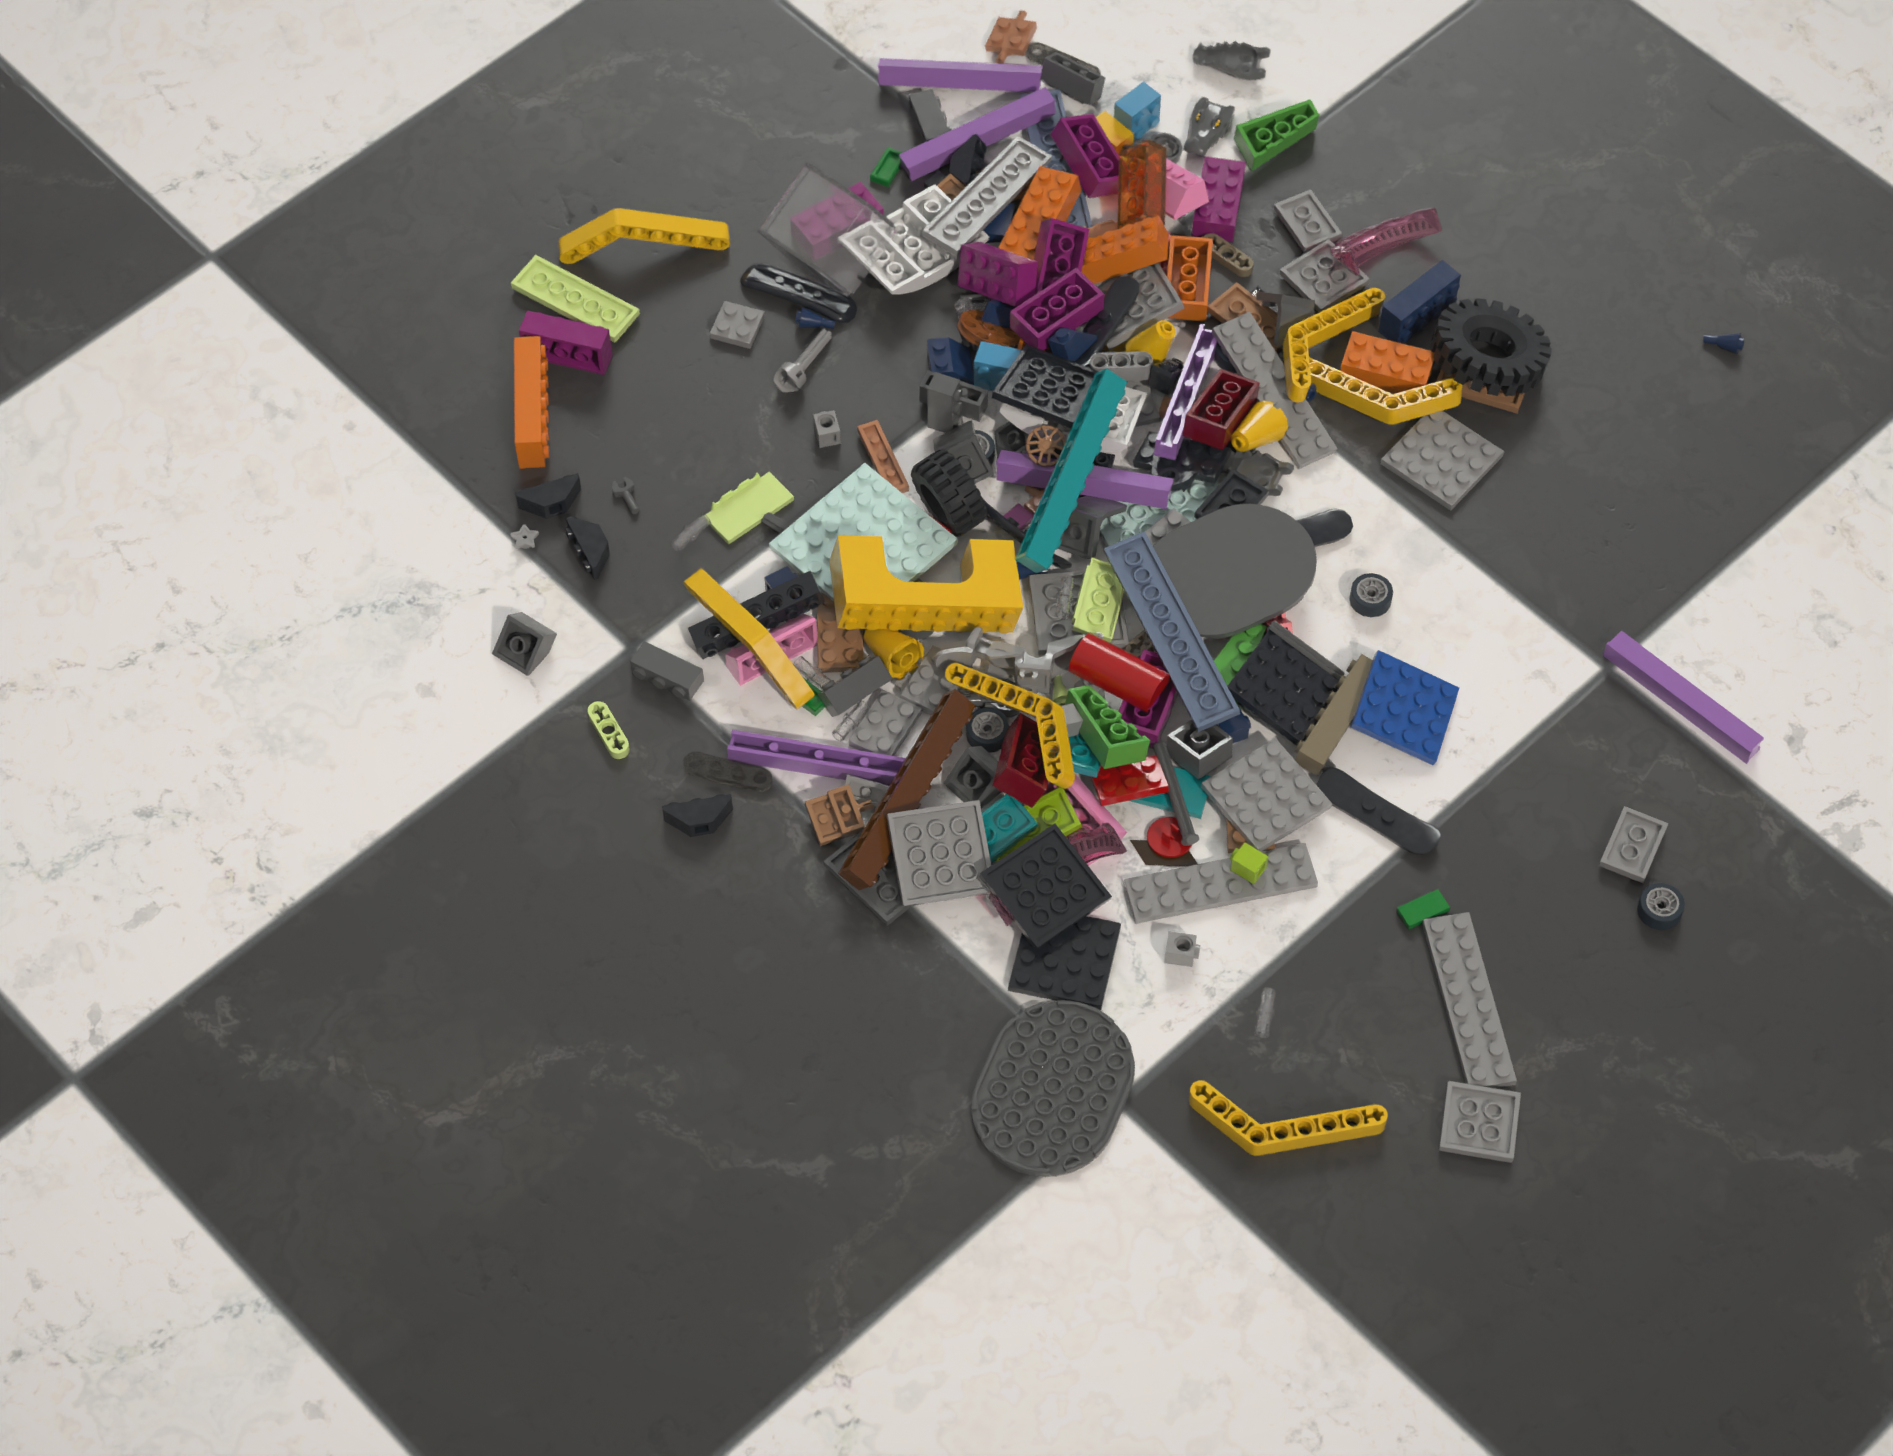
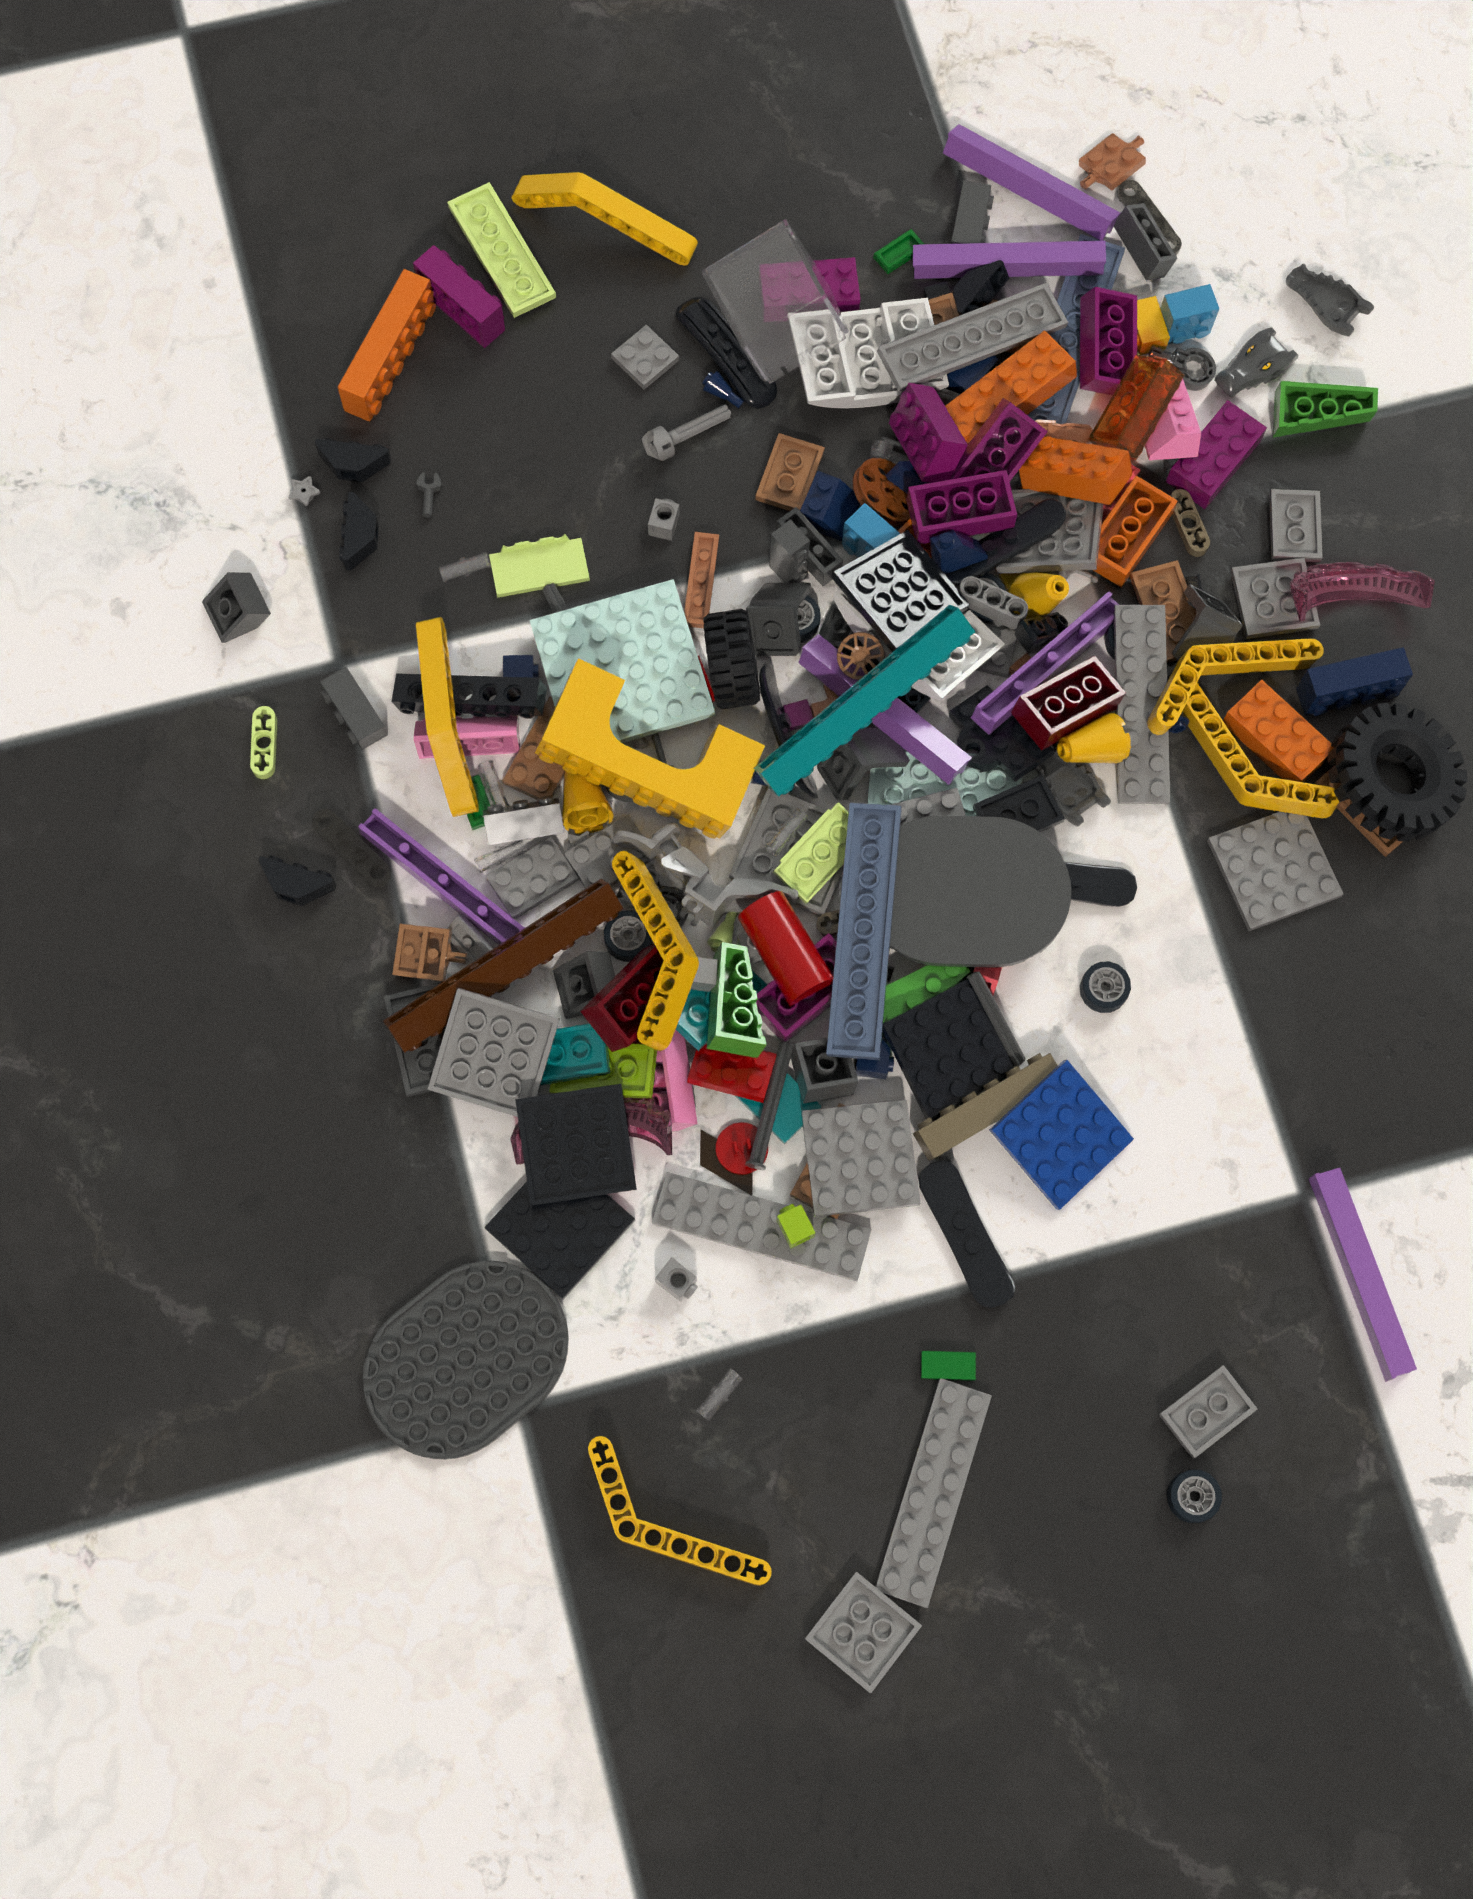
camera: 25 degrees right, 15 degrees up
(903, 354) = (789, 472): none -> medium nougat plate

